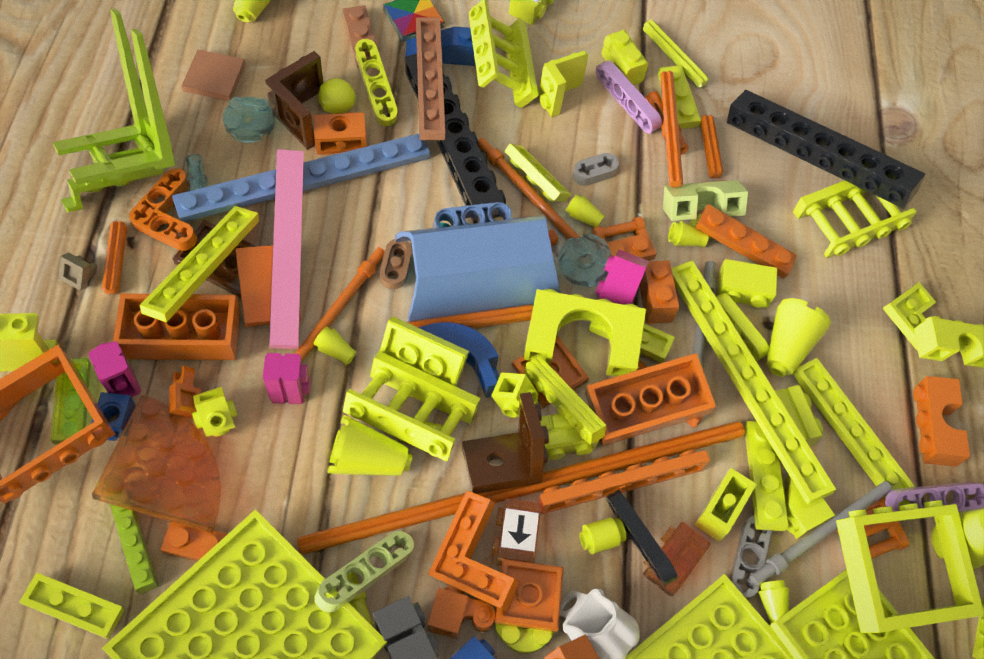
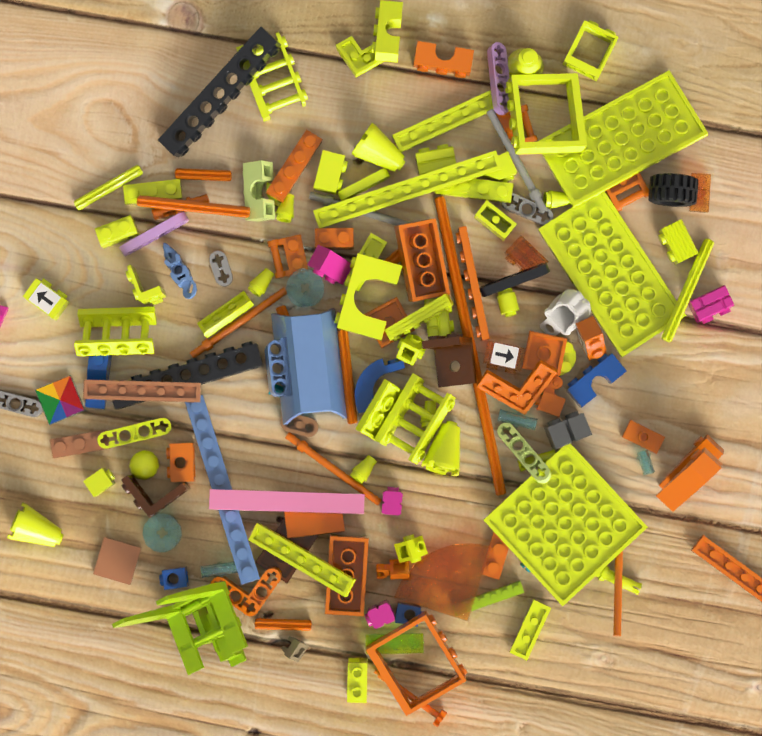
camera: 80 degrees left, 25 degrees up
(187, 130) = (182, 575): none -> blue brick
(311, 42) = (100, 481): none -> neon yellow brick
(419, 563) = (517, 419): none -> clear light blue pin
(584, 120) = (179, 272): none -> medium blue animal

